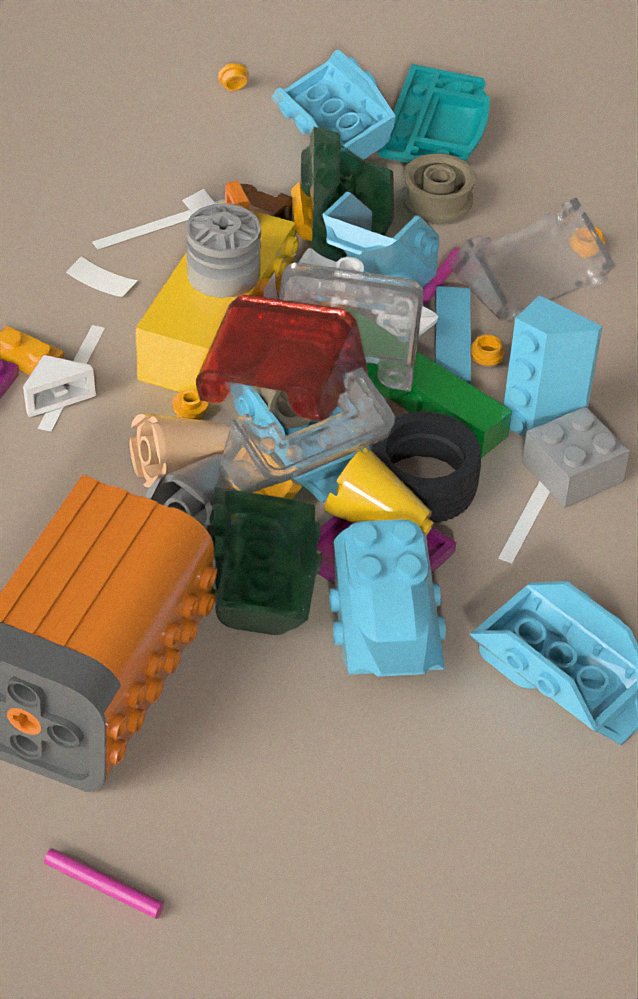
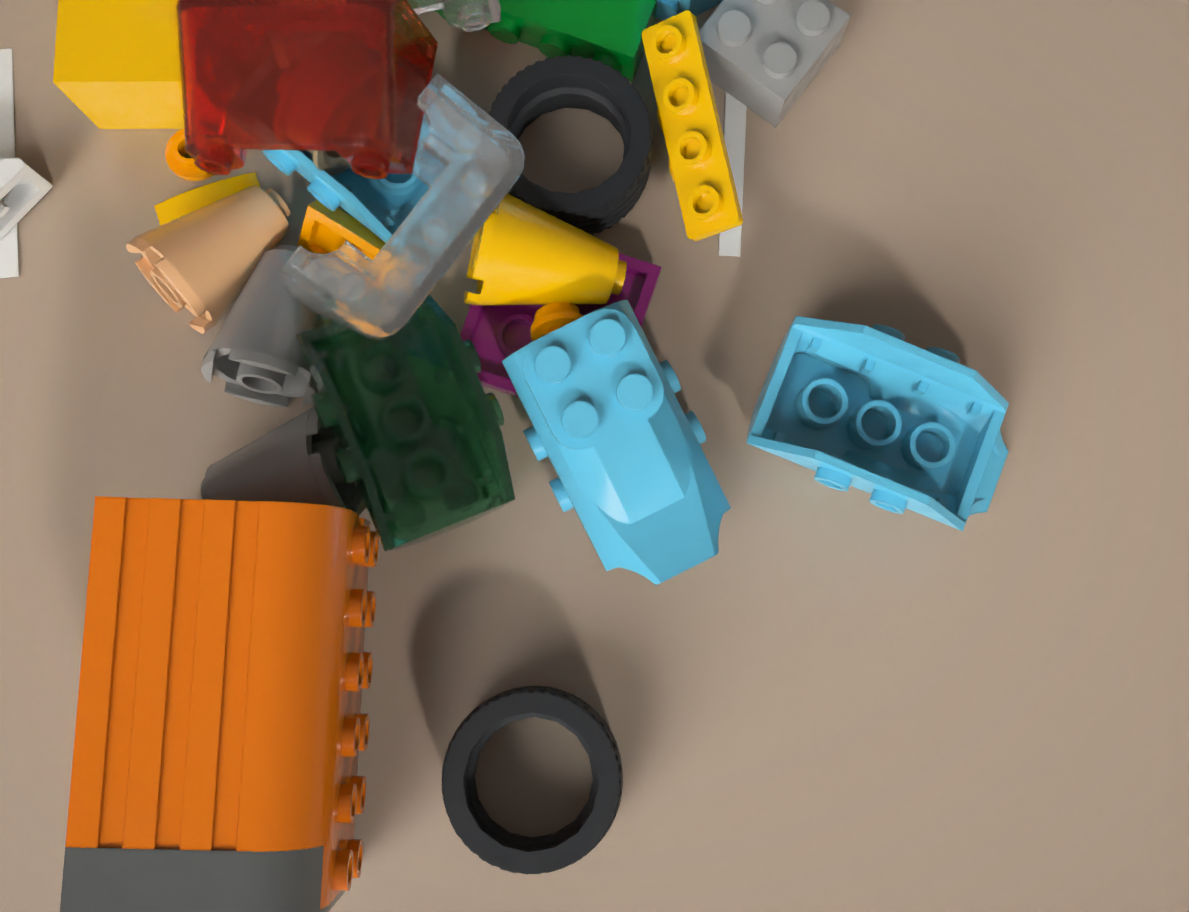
camera: 15 degrees left, 35 degrees up
(256, 727) = (489, 839): none -> black tyre
(505, 473) = (691, 127): none -> yellow bracket

